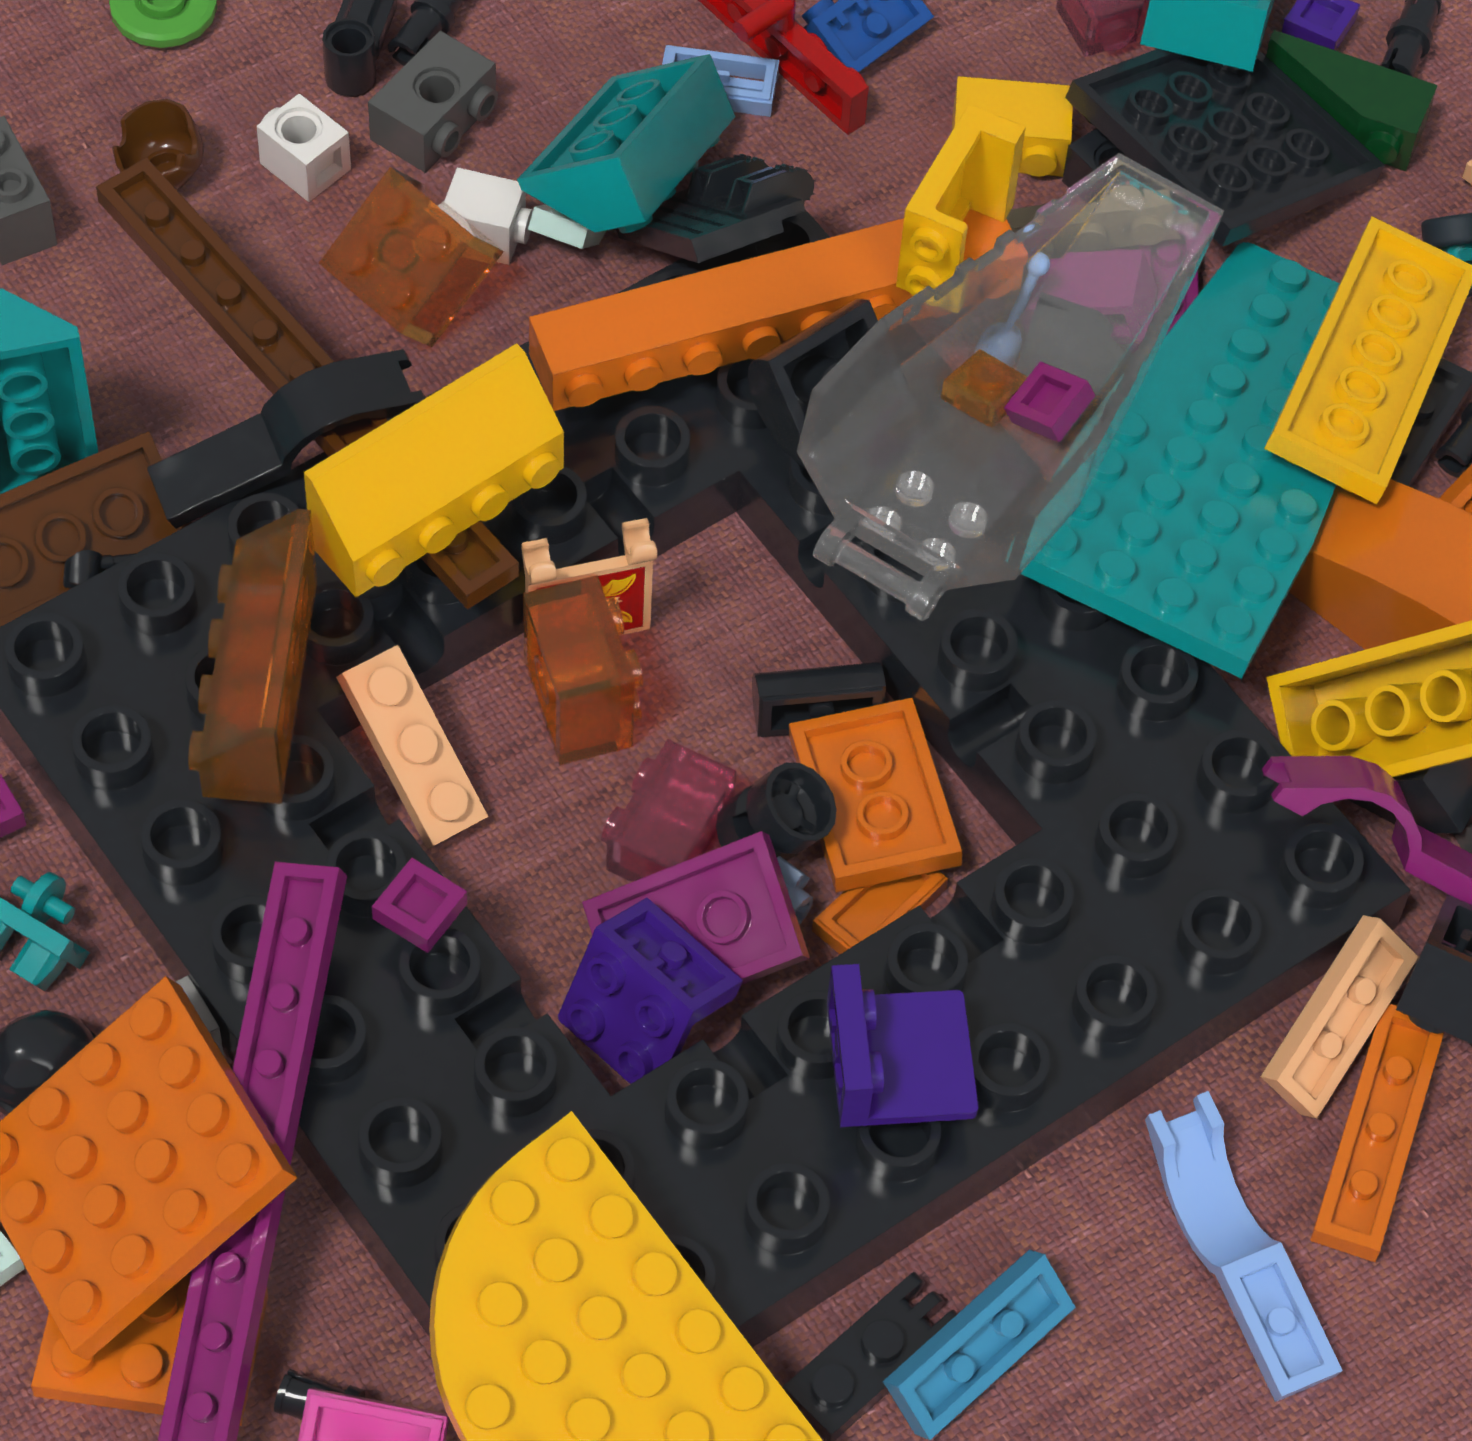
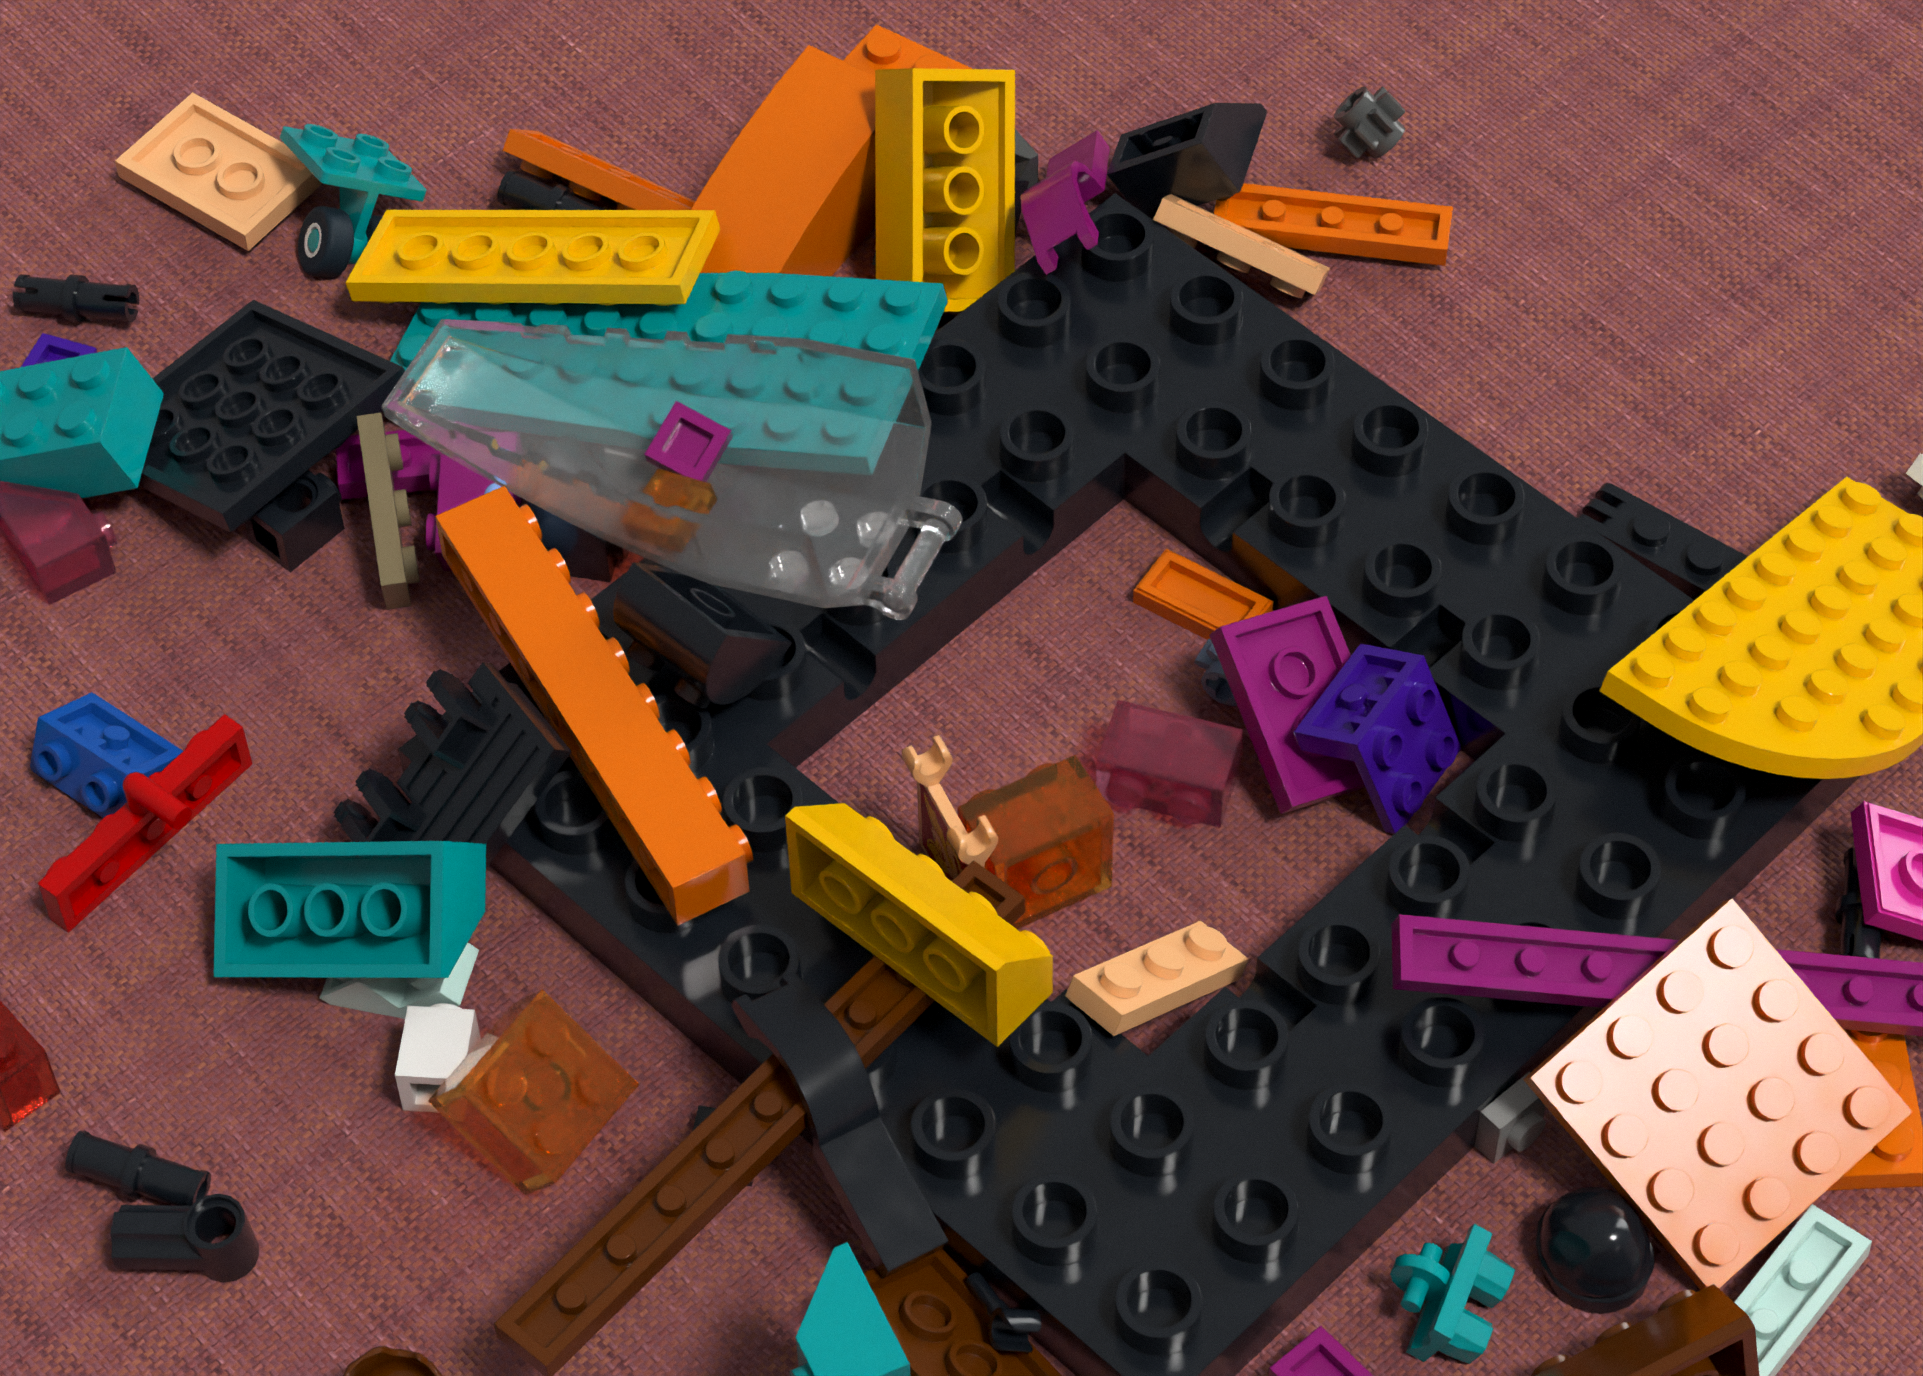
camera: 95 degrees left, 5 degrees down
(257, 663) = (1160, 1048): clear orange slope -> none
(303, 147) = (359, 1233): white brick -> none
(419, 905) = (1387, 877): magenta plate -> none
(433, 102) = (297, 1169): dark grey brick -> none
(744, 94) = (195, 928): light blue tile -> none
(786, 804) = (1160, 659): black wheel -> none
(813, 693) = (993, 670): black brick -> none
(885, 794) = (1097, 607): orange plate -> none
(899, 1054) = (1430, 490): dark purple bracket -> none
(972, 172) = (501, 509): yellow panel -> none
(979, 1344) = (1628, 465): dark azure plate -> none
(1031, 104) = (244, 604): yellow brick -> none
(1243, 1257) = (1483, 299): light blue piece -> none
(1370, 101) = (179, 308): dark green slope -> none

